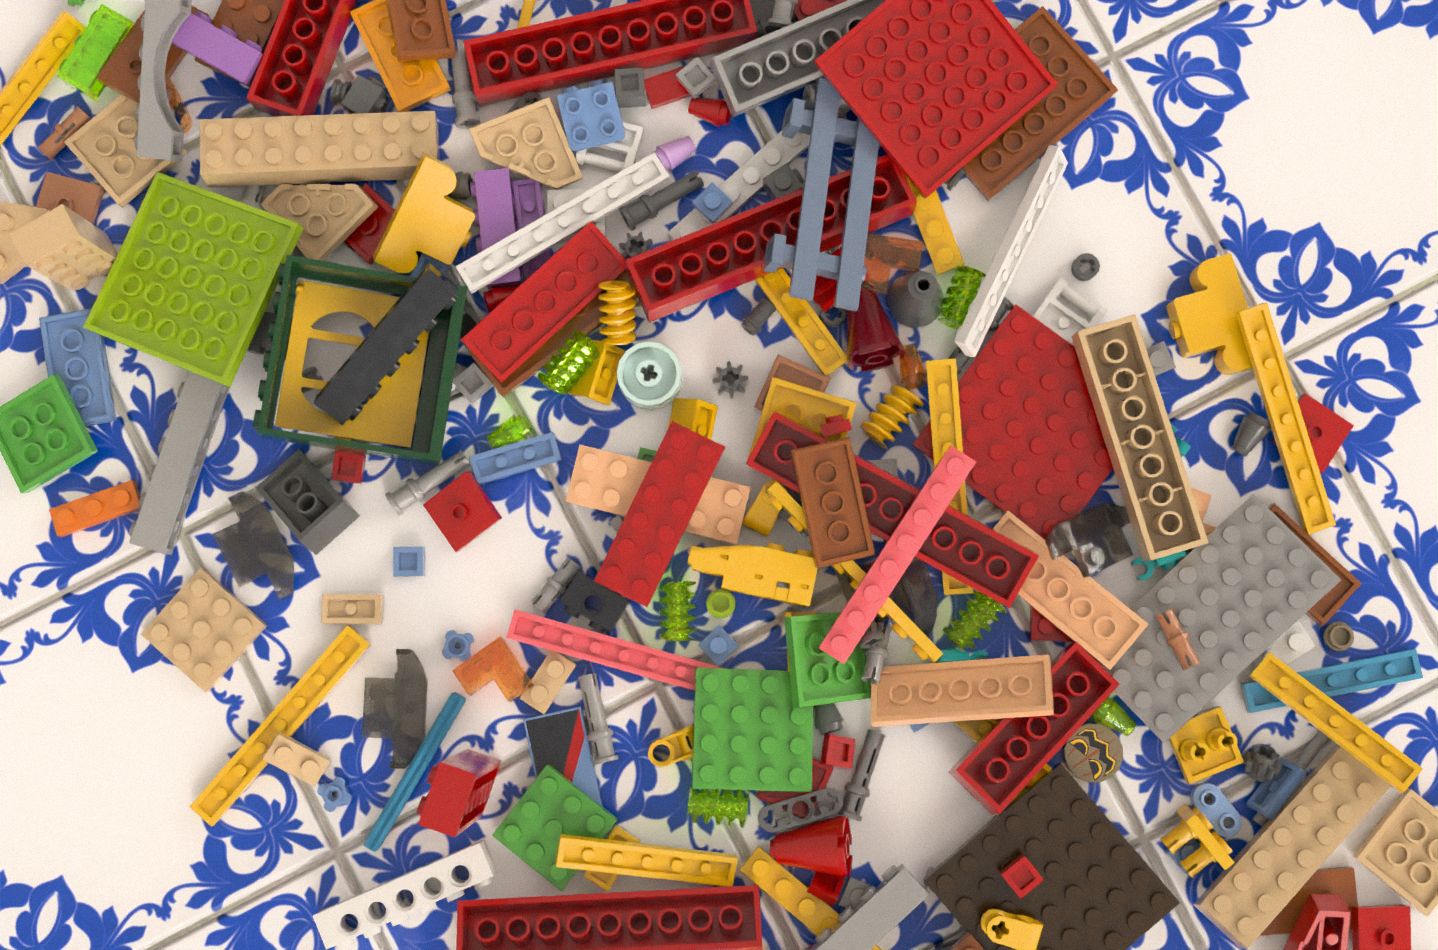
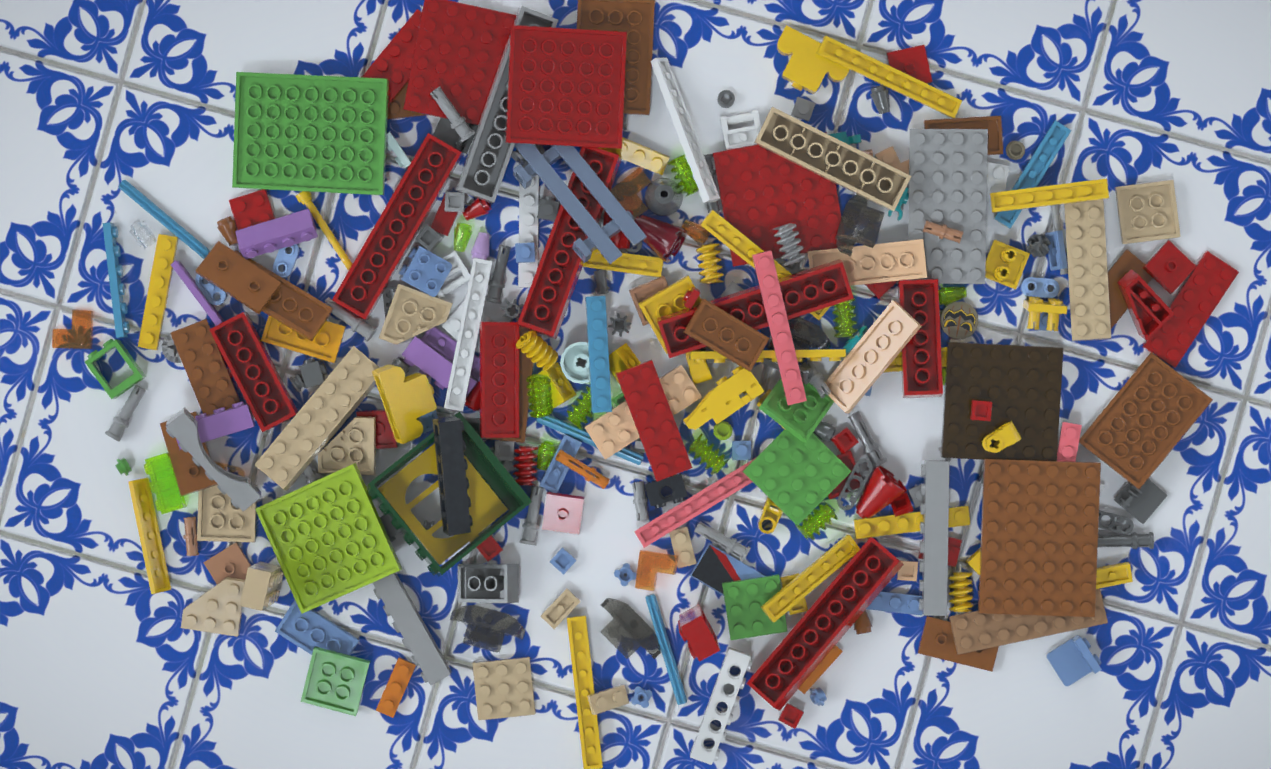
camera: 45 degrees left, 5 degrees up
(477, 420) = (525, 465): none -> red piece
(537, 520) = (589, 473): none -> orange pin
(569, 453) = (583, 436): none -> dark azure axle
(602, 426) = (582, 410): none -> clear neon green piece
(665, 122) = (462, 235): none -> clear neon green cone
(675, 382) = (598, 354): none -> dark azure plate
(998, 480) = (789, 243): none -> light grey piece

